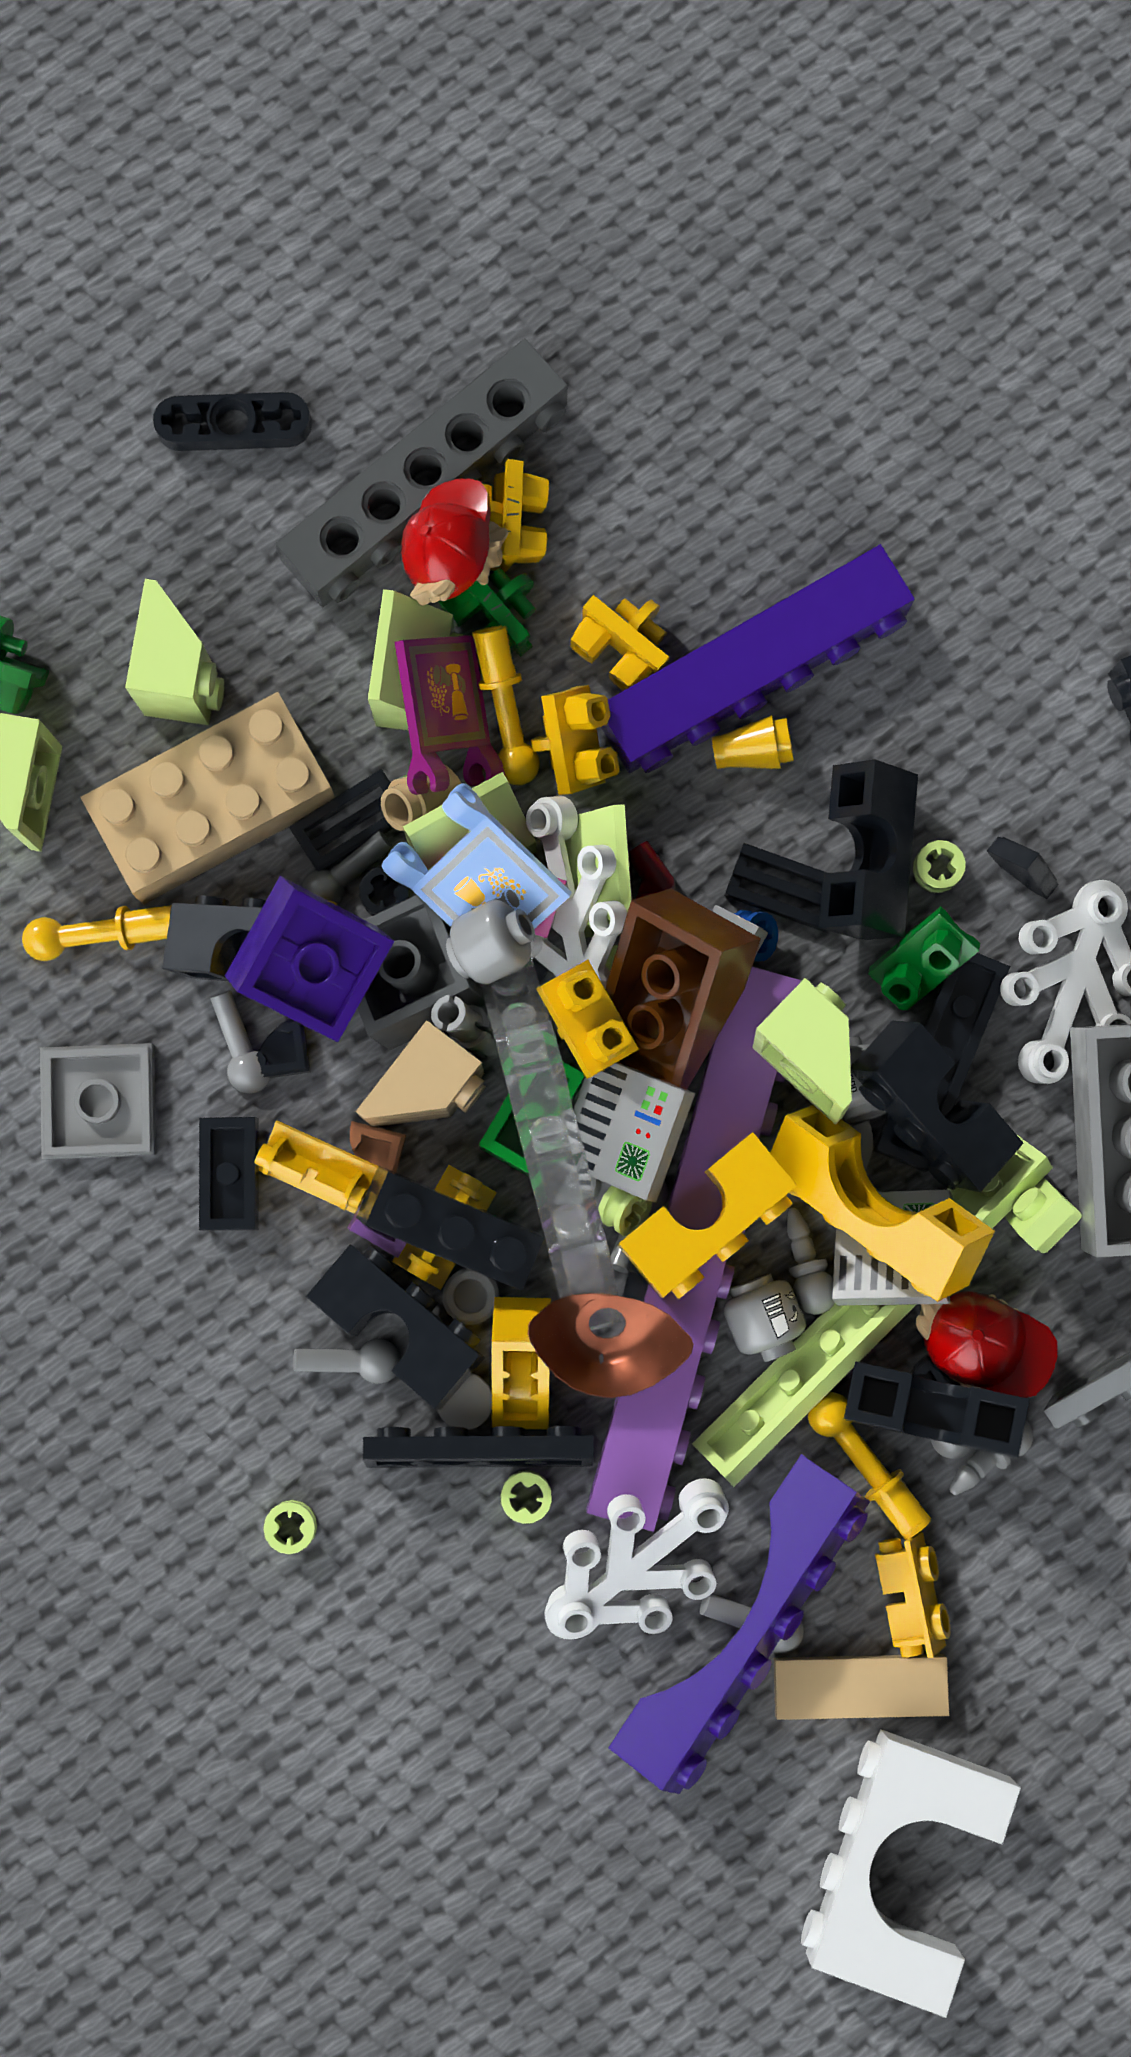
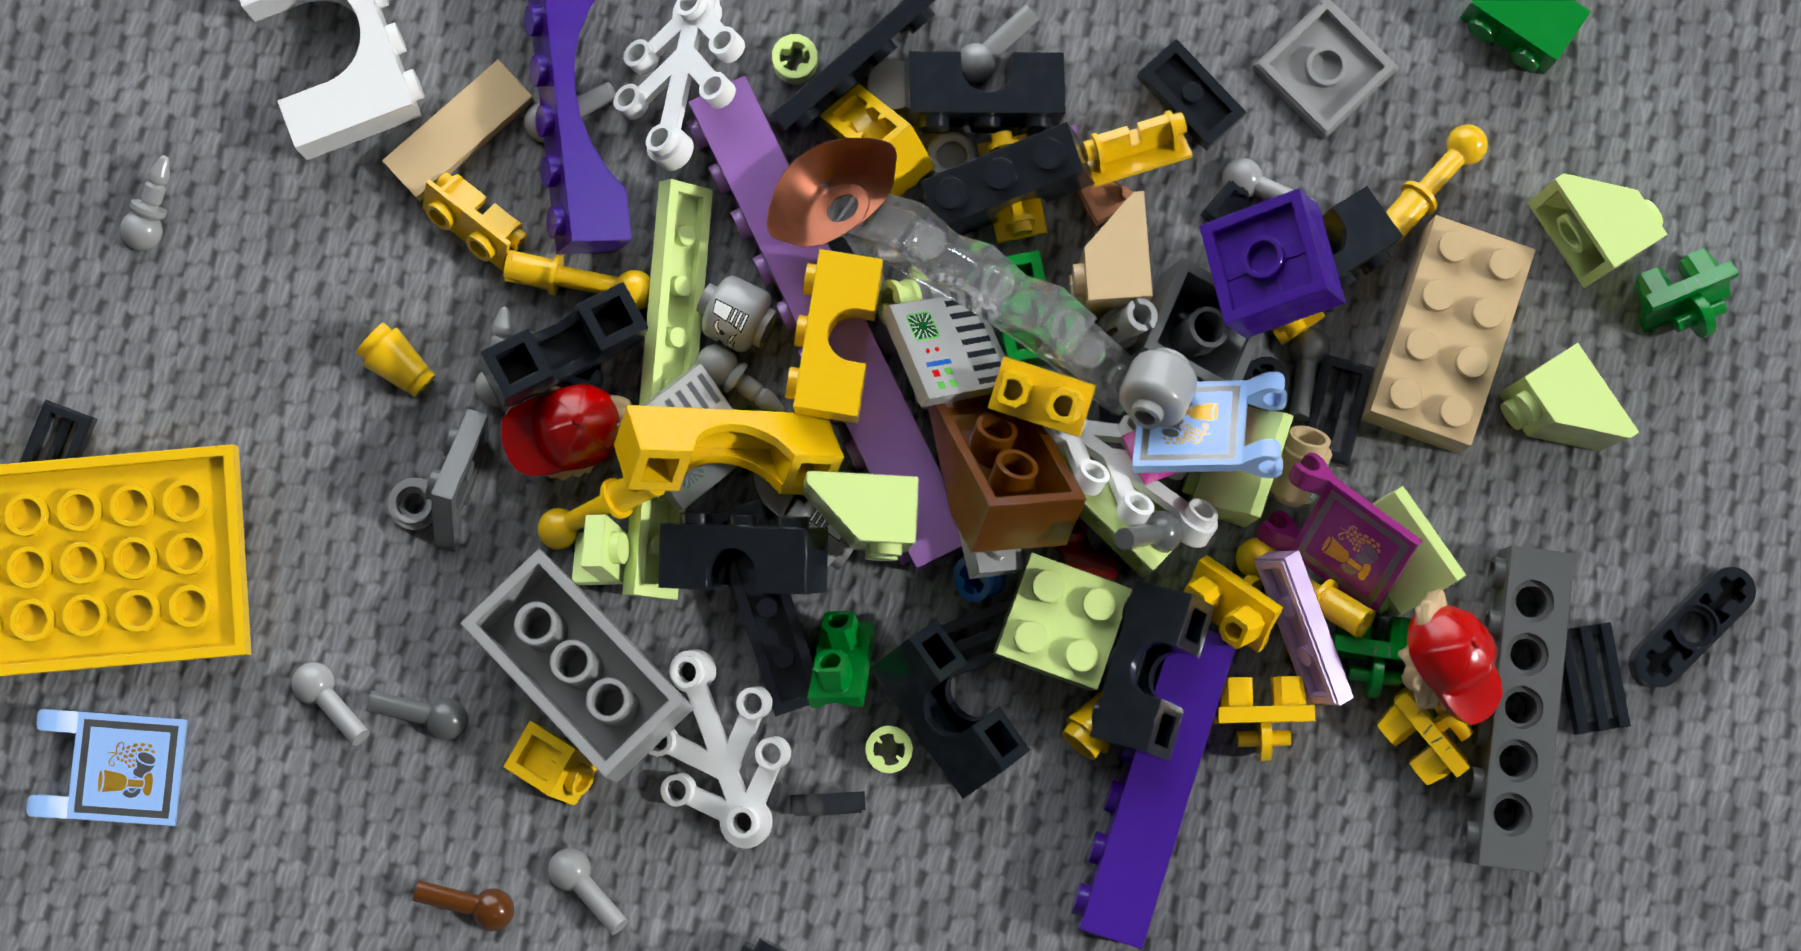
camera: 140 degrees right, 0 degrees up
(368, 414) = (1612, 675): none -> black tile
(536, 672) = (1304, 627): none -> lavender tile
(591, 828) = (1160, 532): none -> dark grey bar
(721, 839) = (1062, 622): none -> yellowish green brick
(733, 720) = (1154, 627): none -> black arch
(1053, 1270) = (560, 527): none -> yellow pin
(1078, 1529) = (395, 360): none -> yellow cone

